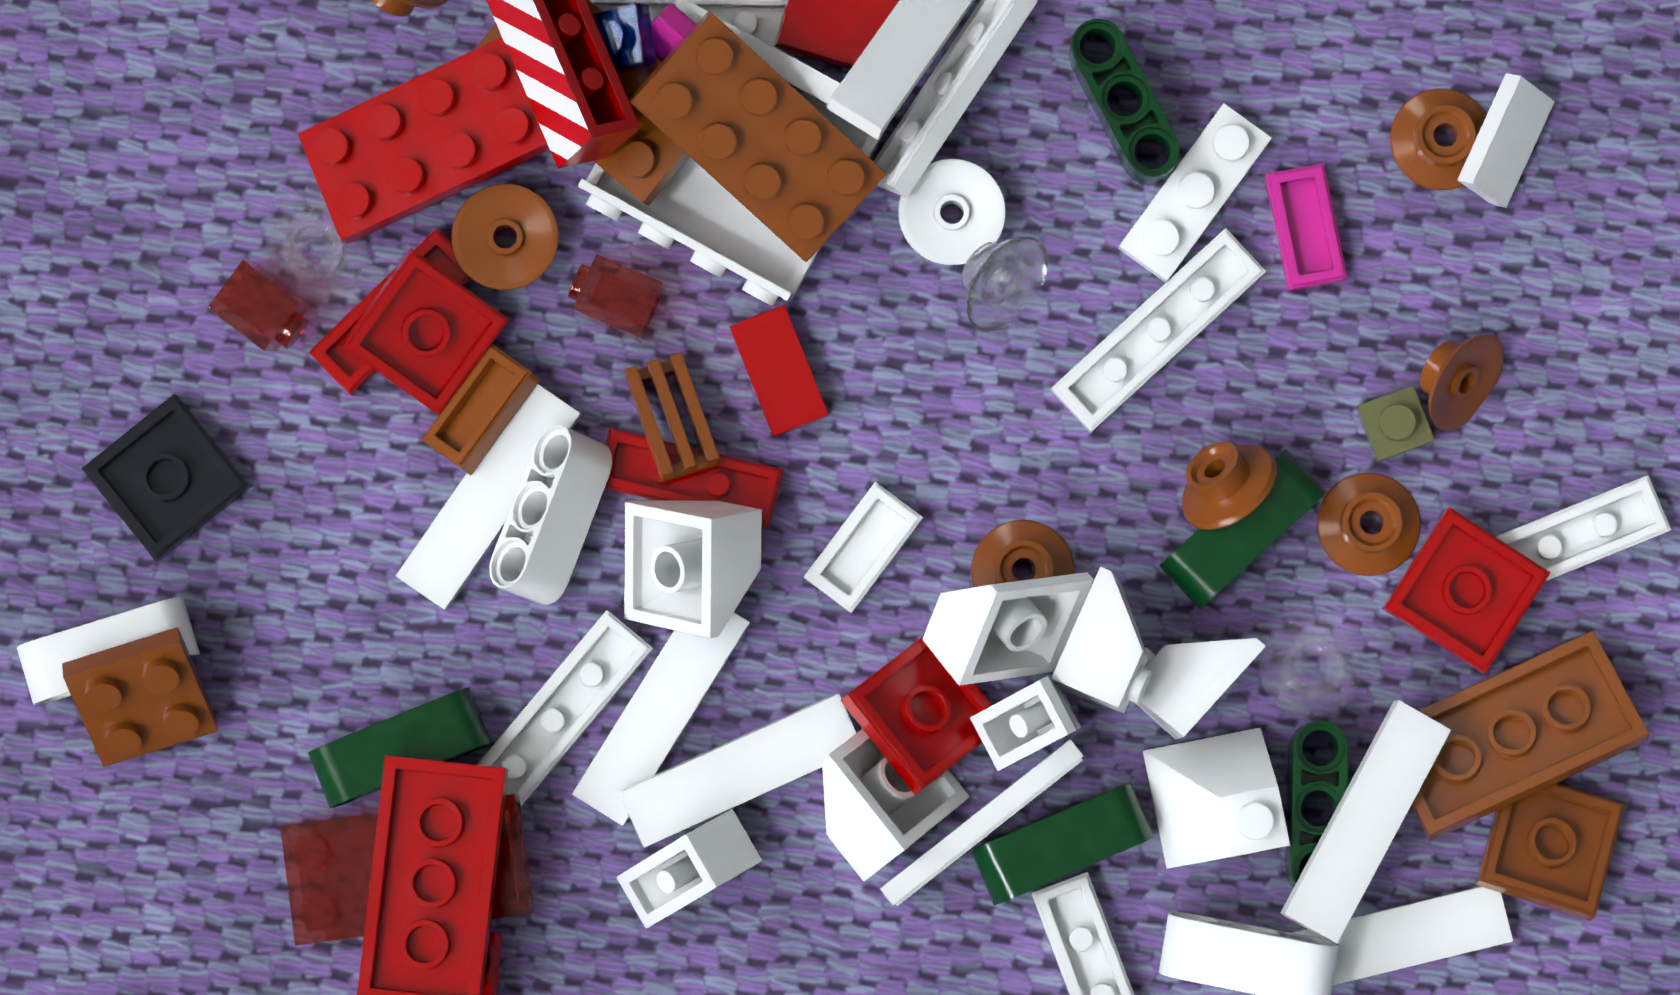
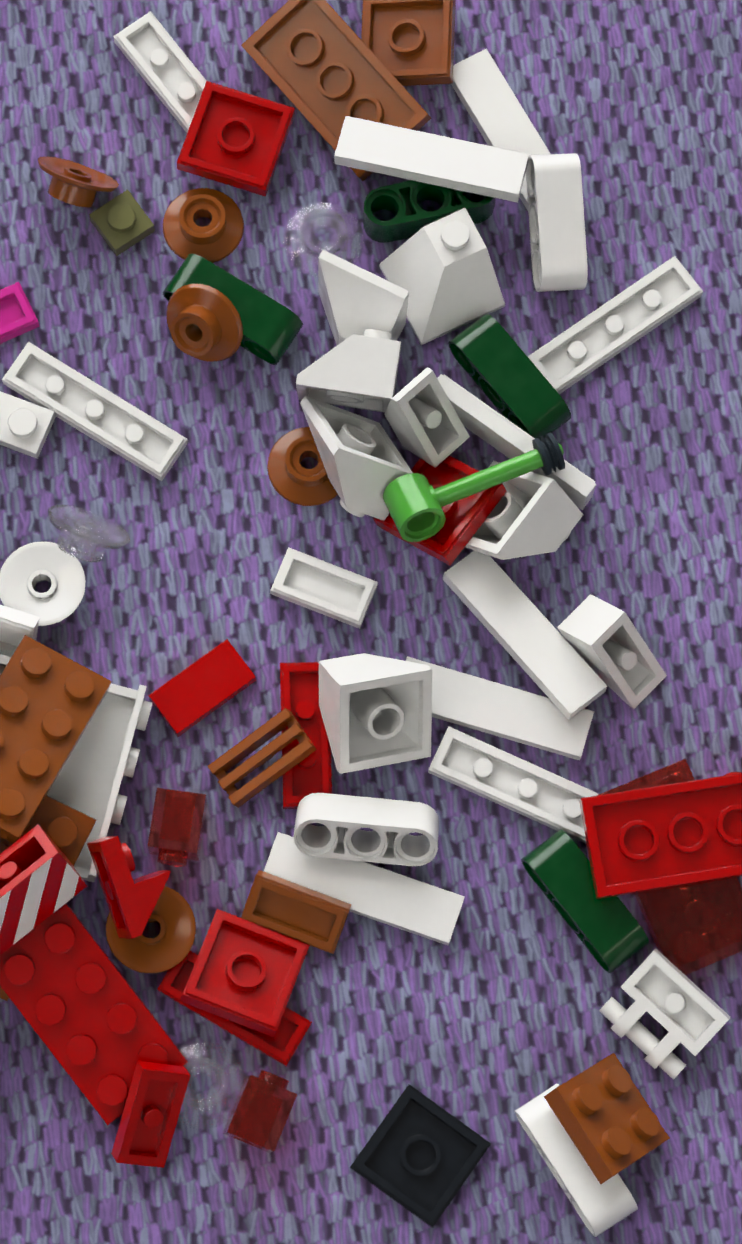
camera: 115 degrees left, 10 degrees down
(249, 814) = (674, 1003): none -> white plate
(291, 182) = (150, 1114): none -> red plate
(539, 218) = (127, 898): none -> red slope
(917, 678) = (417, 505): none -> bright green piece

